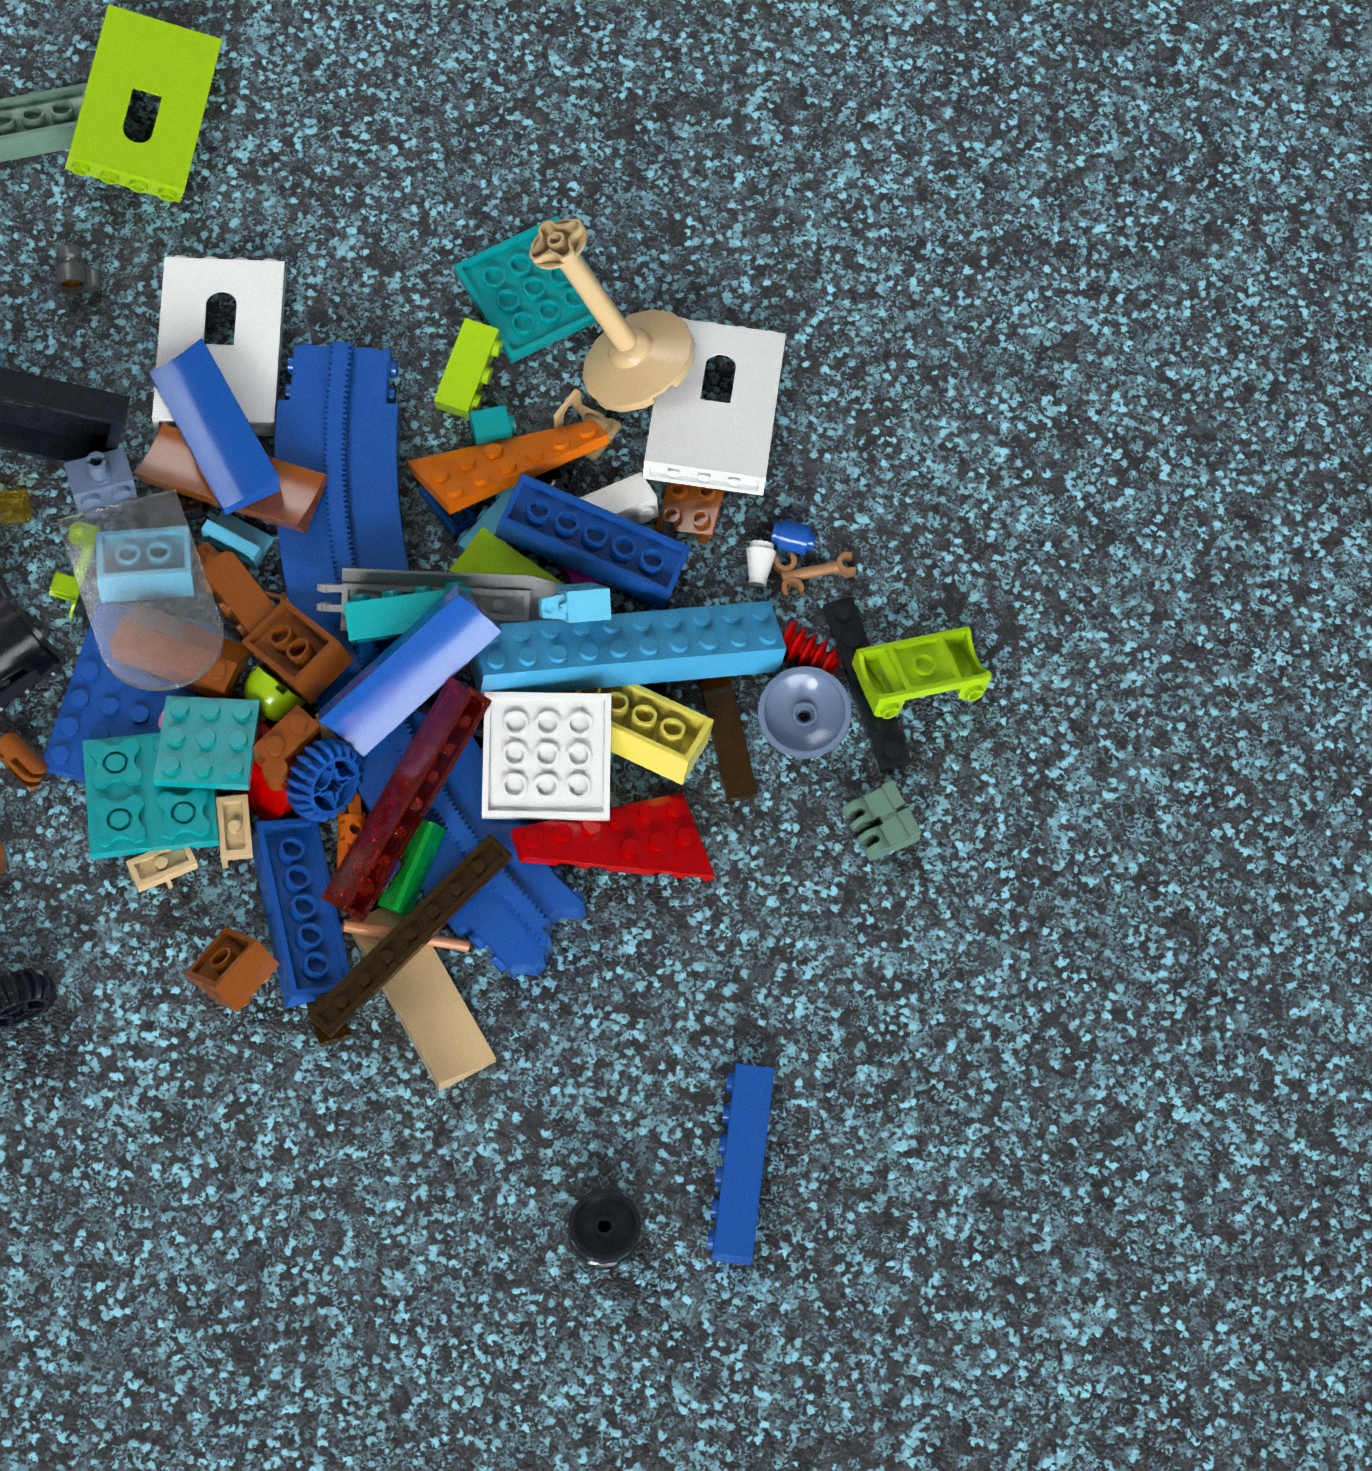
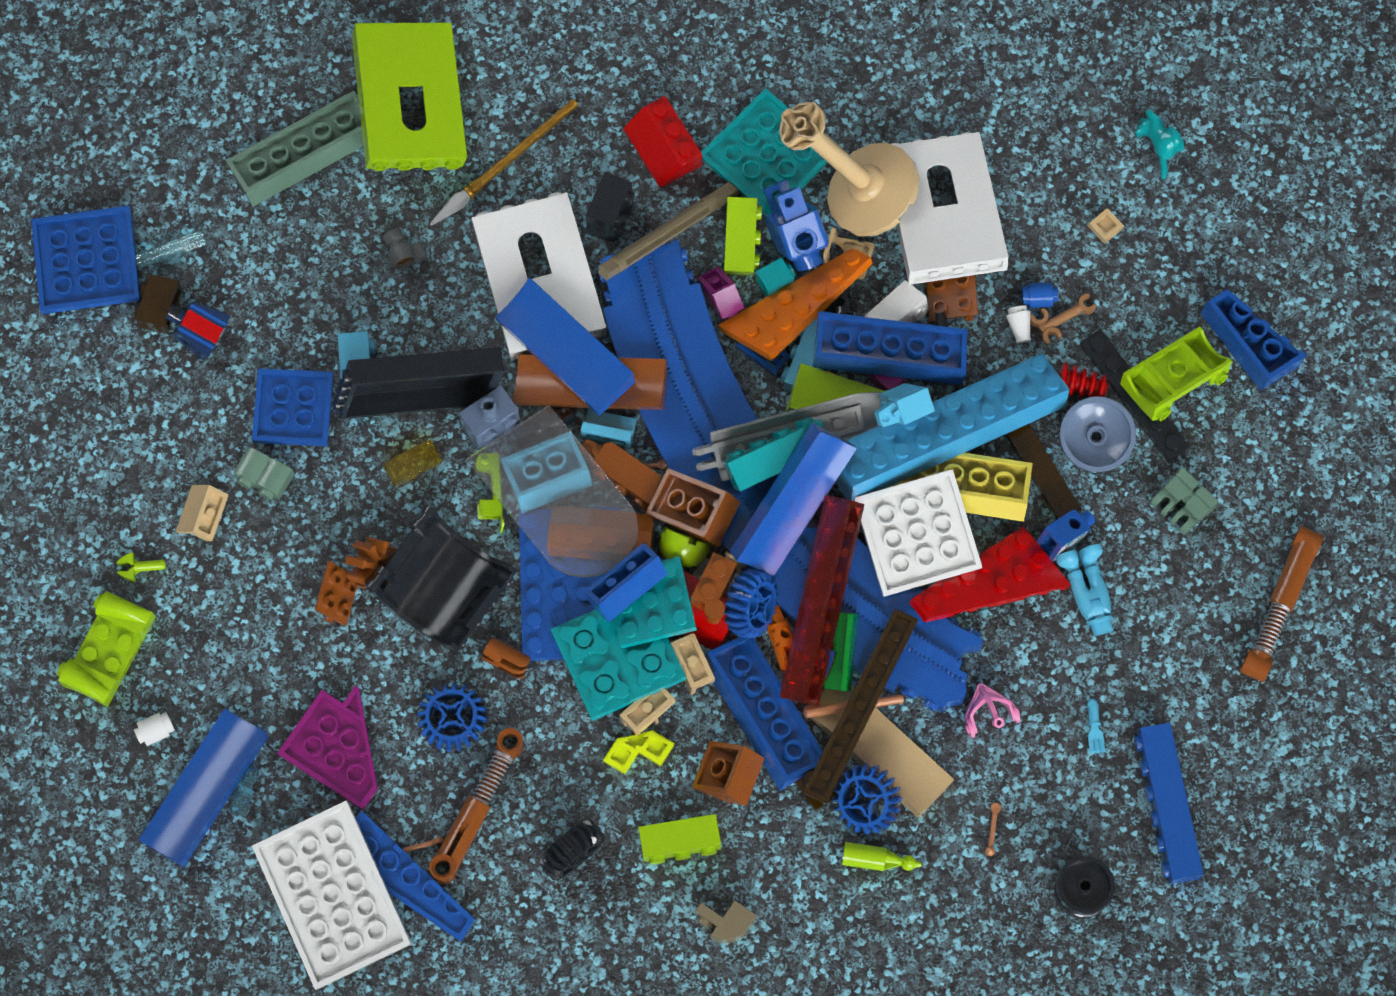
camera: 10 degrees left, 5 degrees up
(124, 907) = (648, 744): none -> neon yellow tile
(146, 1027) = (680, 839): none -> lime brick
(162, 236) = (460, 199): none -> pearl gold piece
(167, 1148) = (728, 928): none -> dark tan brick
(182, 707) = (626, 582): none -> blue brick
(327, 292) = (610, 207): none -> black brick
(369, 1120) = (875, 858): none -> lime wheel
(376, 1022) = (870, 808): none -> blue gear
(377, 335) = (667, 231): none -> dark tan piece
(417, 241) = (663, 142): none -> red slope
(422, 426) = (720, 292): none -> magenta slope
(528, 362) = (795, 226): none -> blue piece
(534, 1109) = (995, 809): none -> nougat hinge
(565, 970) = (986, 695): none -> bright pink helmet
(683, 1061) = (1095, 736): none -> medium azure piece
(726, 814) = (1065, 533): none -> blue torso
(734, 905) = (1091, 602): none -> medium azure piece
(899, 483) = (1105, 226): none -> tan plate
(966, 963) = (1282, 601): none -> dark orange piece
(1000, 406) = (1165, 140): none -> teal animal
(1027, 667) = (1251, 340): none -> blue wedge

